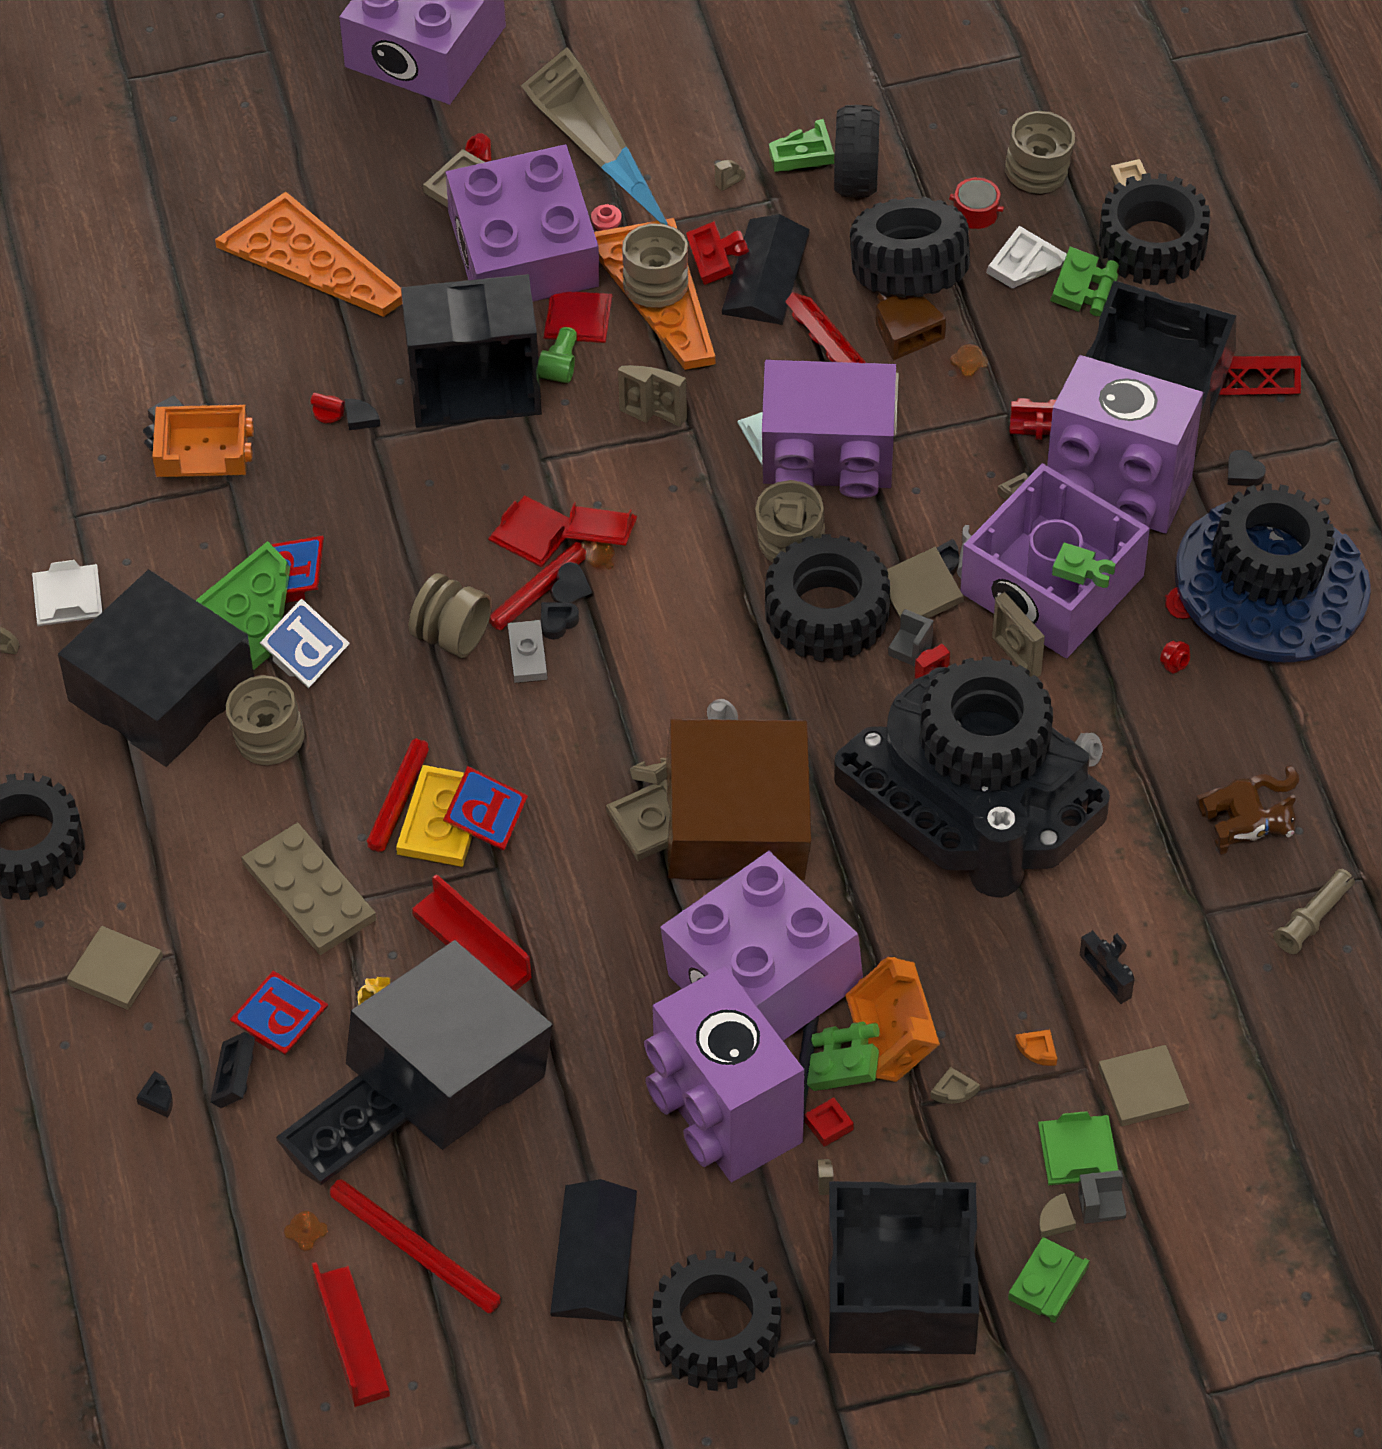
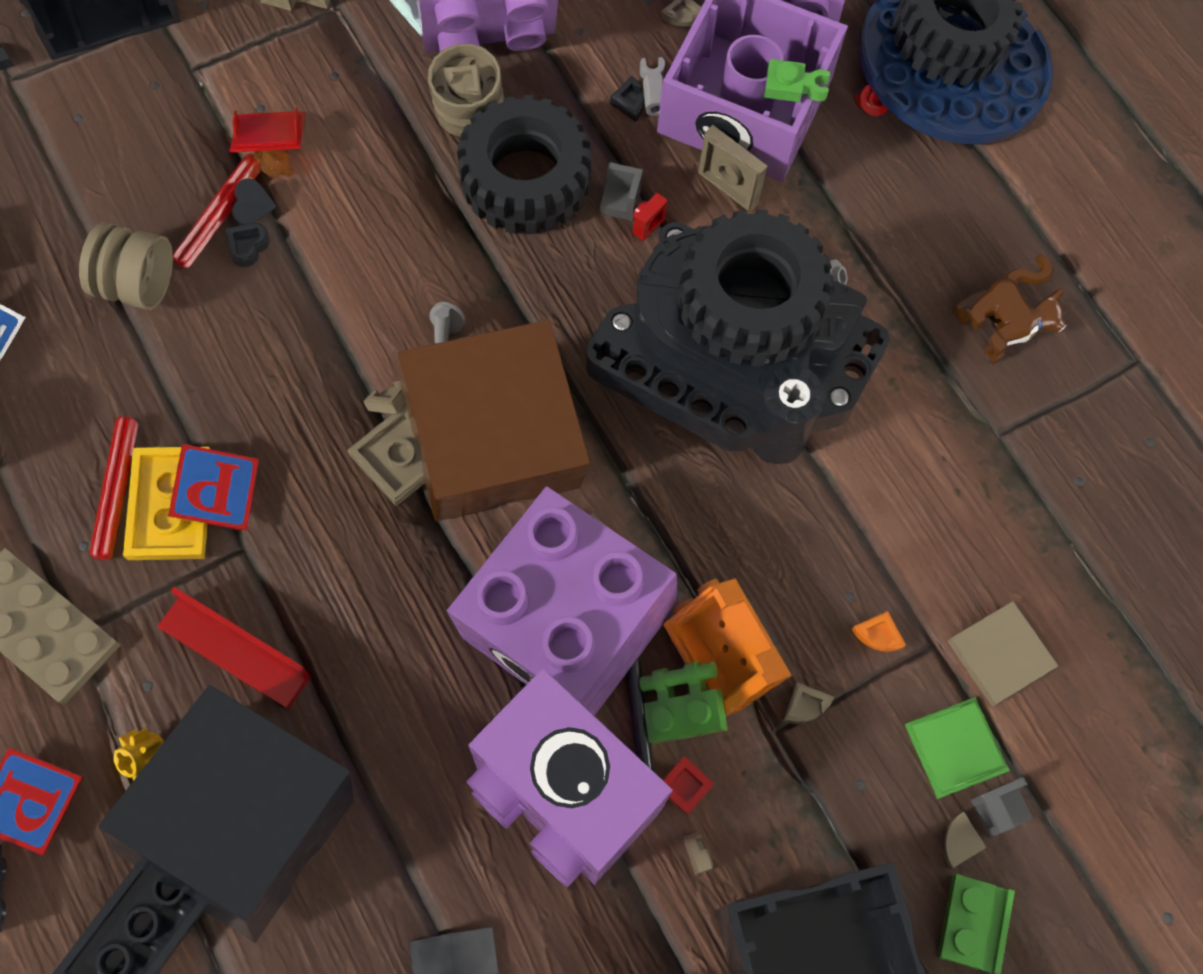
camera: 20 degrees left, 15 degrees up
(527, 651) = (222, 287): light grey plate -> none
(530, 530) = (196, 150): red piece -> none
(923, 585) = (618, 132): dark tan tile -> none
(1104, 962) = (927, 521): black plate -> none
(1175, 656) = (888, 157): red plate -> none
(1307, 920) = (1107, 421): dark tan pin -> none

